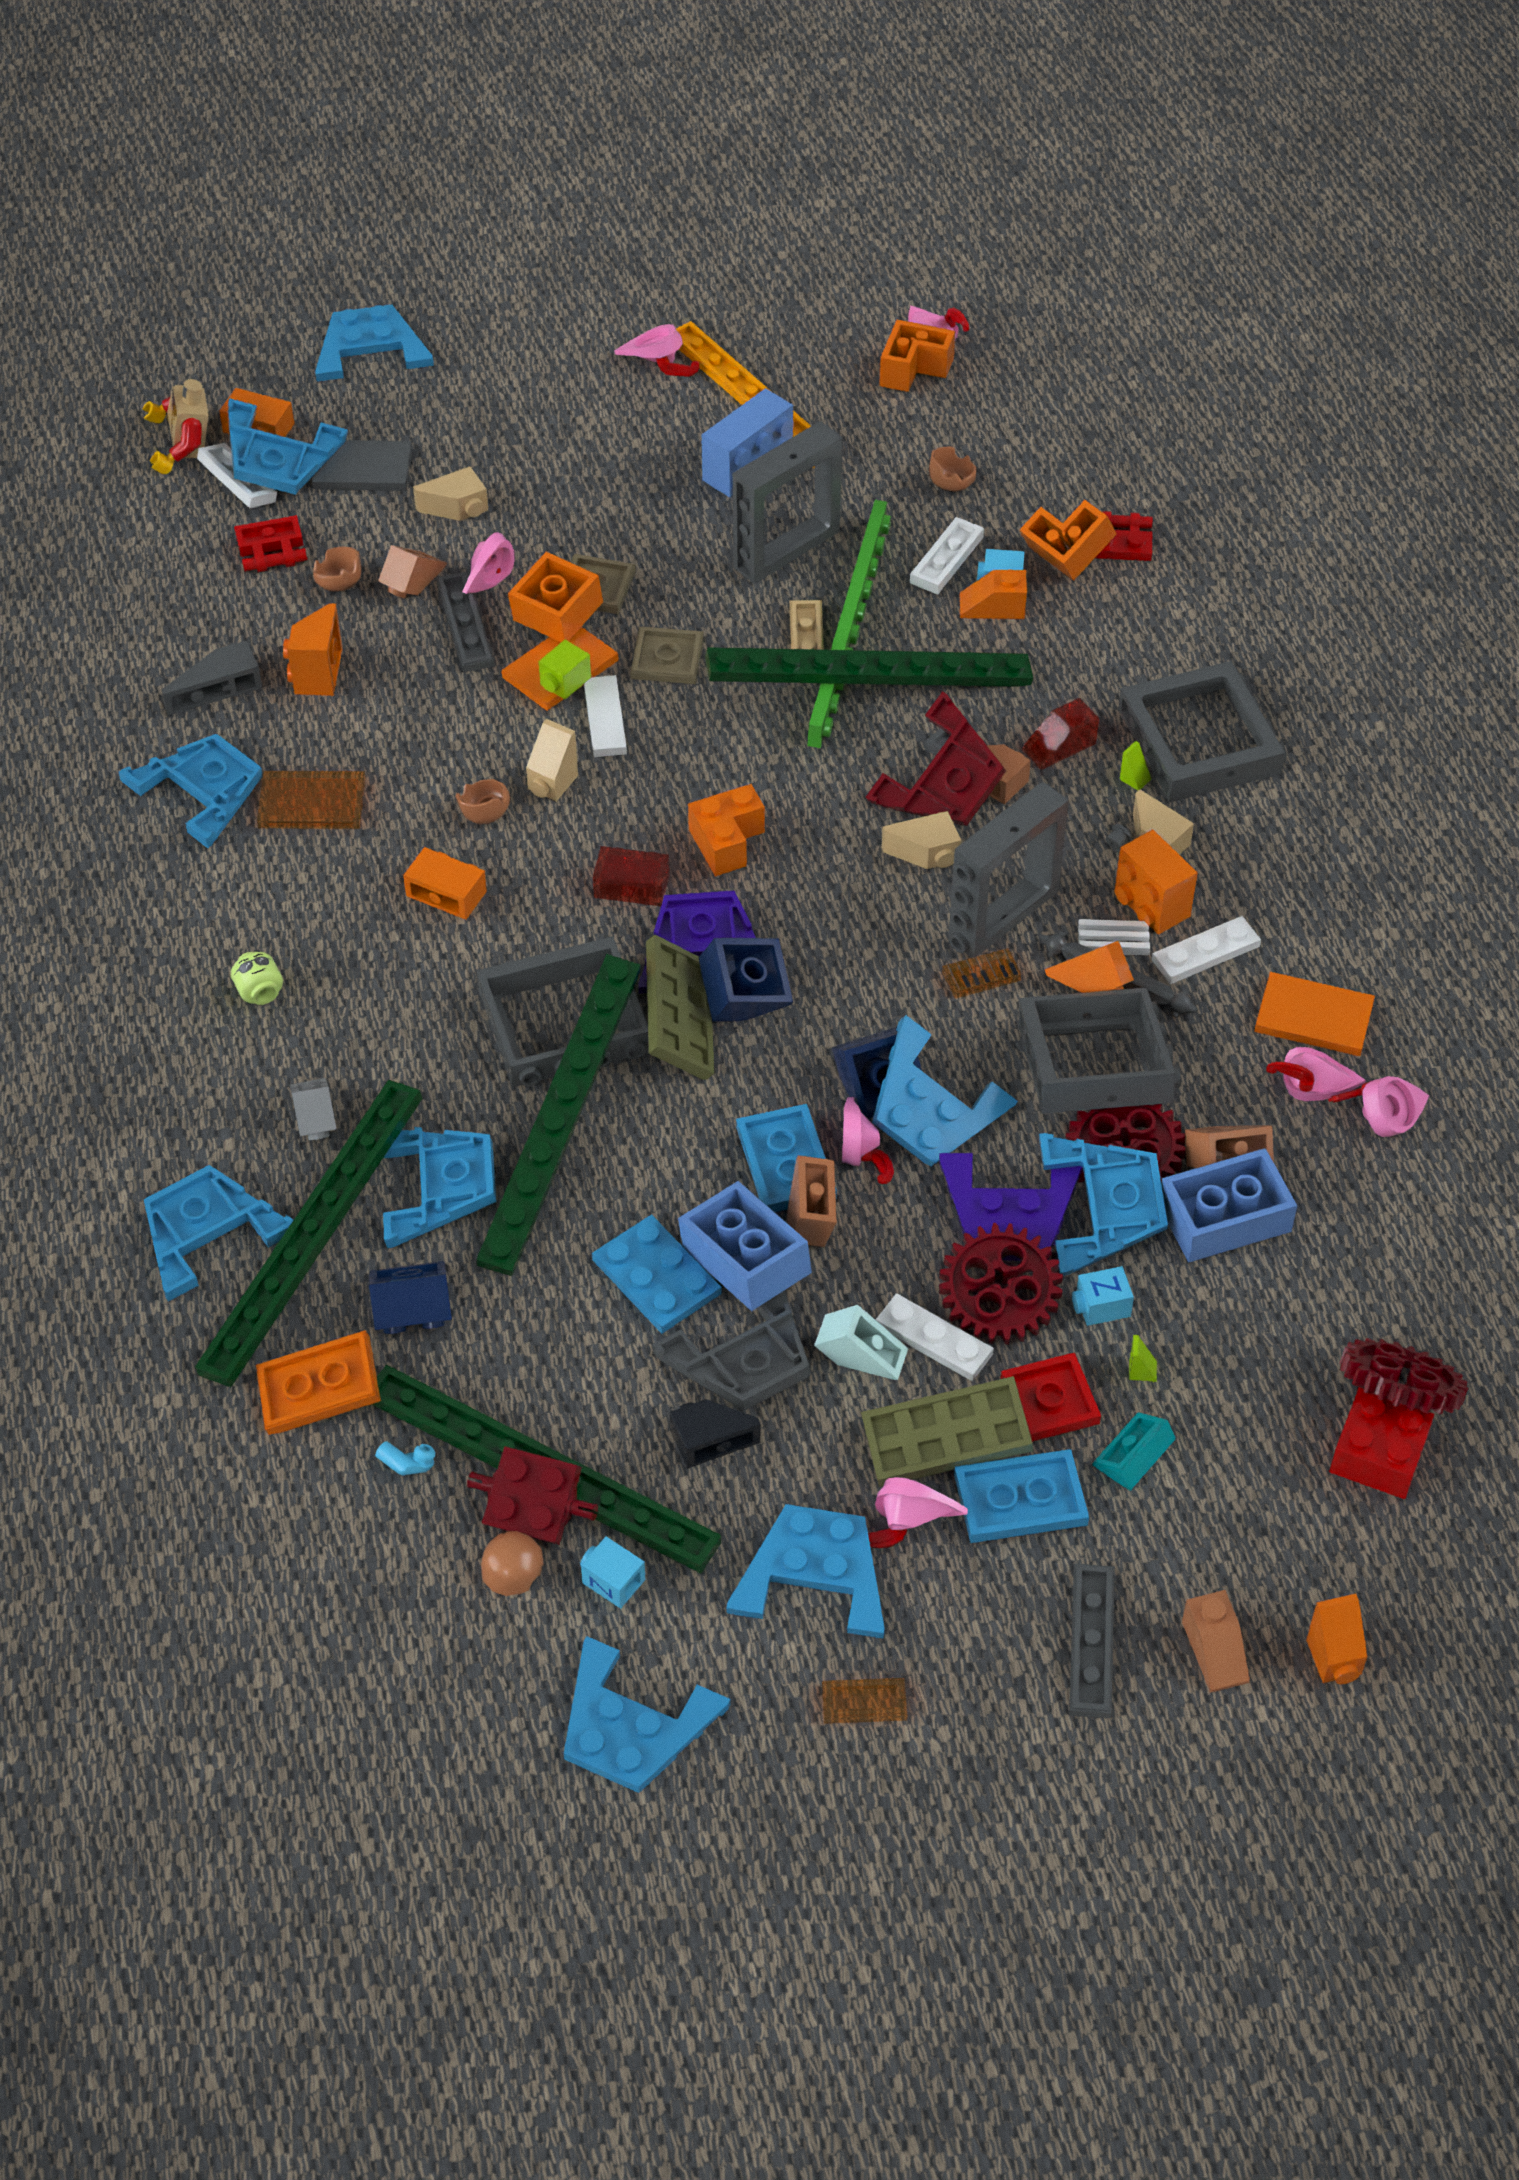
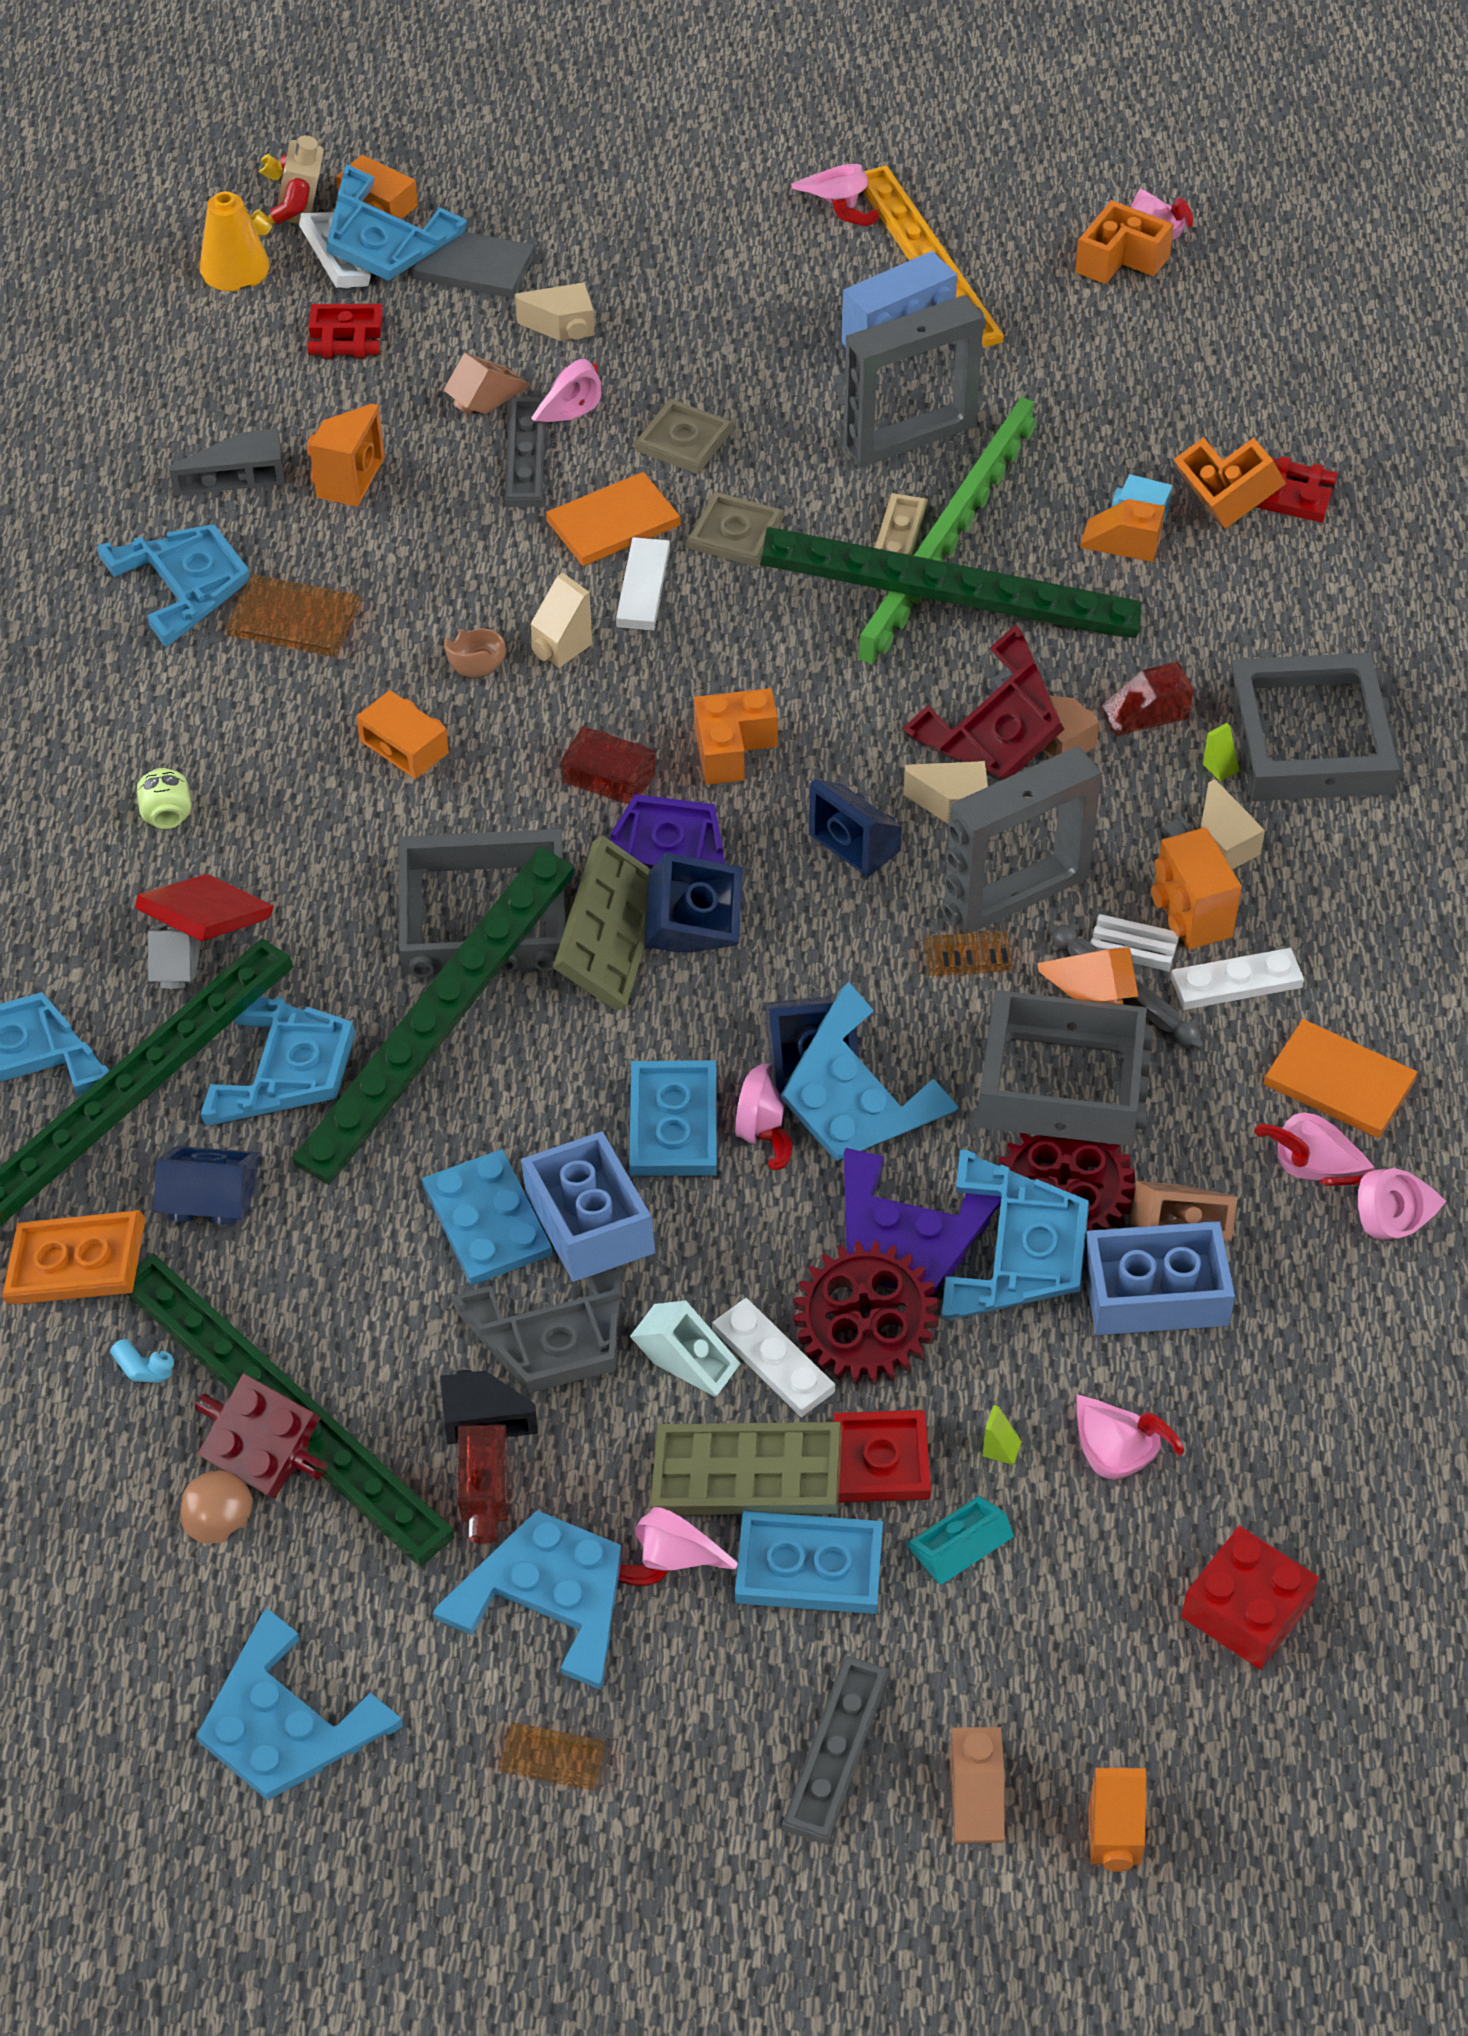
camera: 15 degrees right, 0 degrees up
(147, 488) = (230, 246): none -> light orange cone
(328, 1063) = (203, 907): none -> red tile
(339, 569) = (408, 371): nougat hair -> none
(368, 332) = (527, 119): dark azure wing -> none
(555, 597) = (626, 442): orange brick -> none
(564, 669) = (610, 523): lime brick -> none
(612, 1571) = (319, 1542): medium azure brick -> none
(735, 1488) = (483, 1479): none -> clear red torso
(813, 1200) = (681, 1172): nougat slope -> none
(854, 887) = (852, 826): none -> dark blue slope
(946, 555) = (1086, 474): white plate -> none
(950, 471) = (1121, 380): nougat hair -> none
(1103, 1296) = (980, 1352): medium azure brick -> none
(1234, 1342) = (1120, 1440): none -> bright pink piece
(1427, 1384) = (1325, 1537): dark red gear -> none

